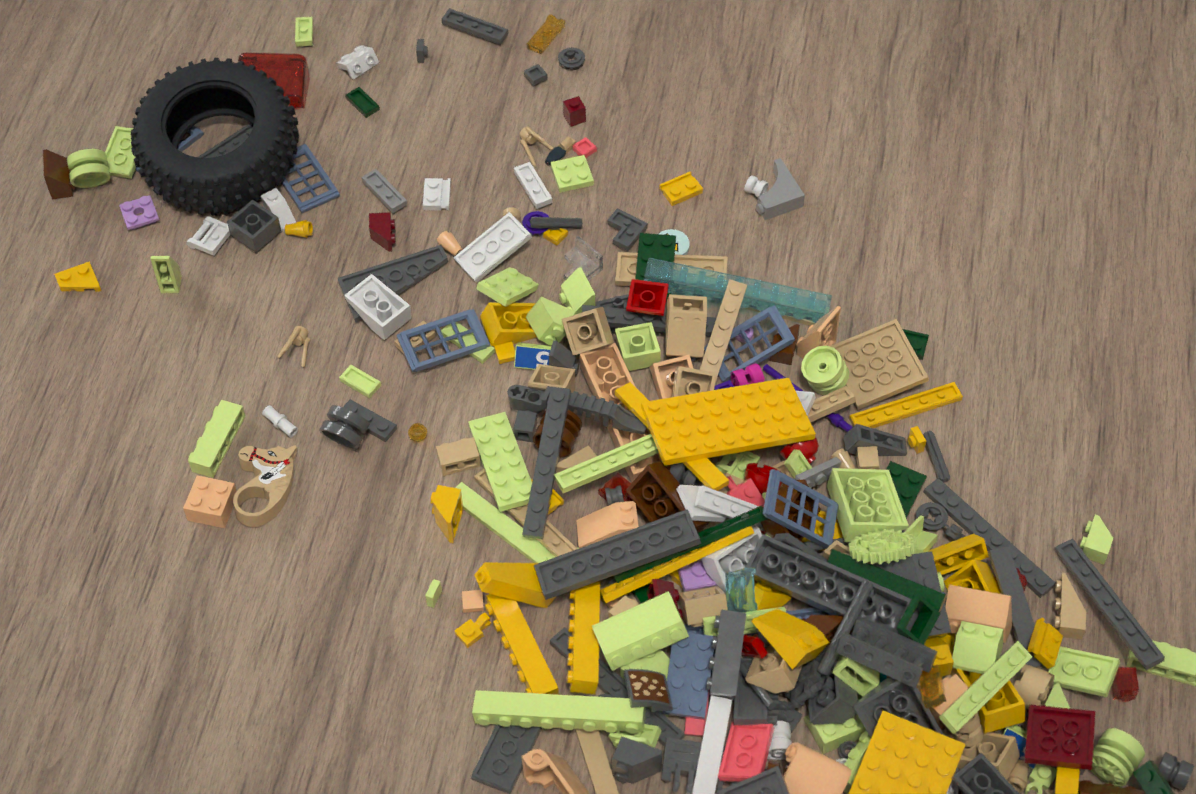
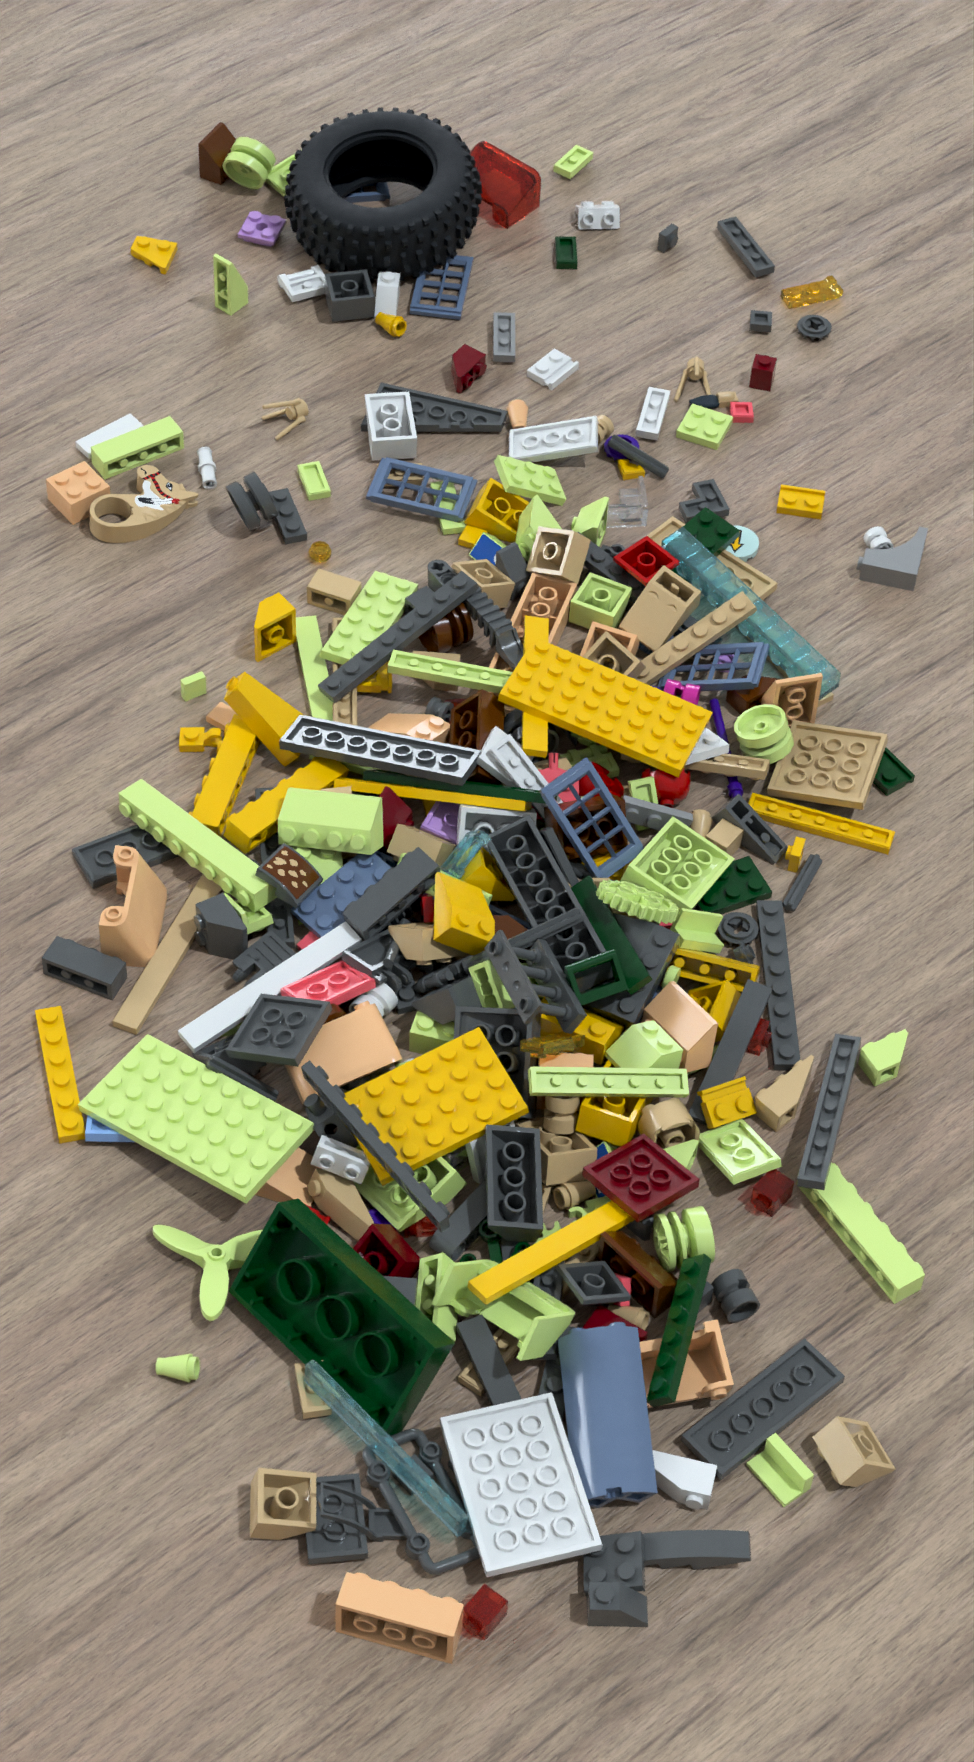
camera: 35 degrees right, 5 degrees down
(186, 442) = (108, 432): none -> white tile

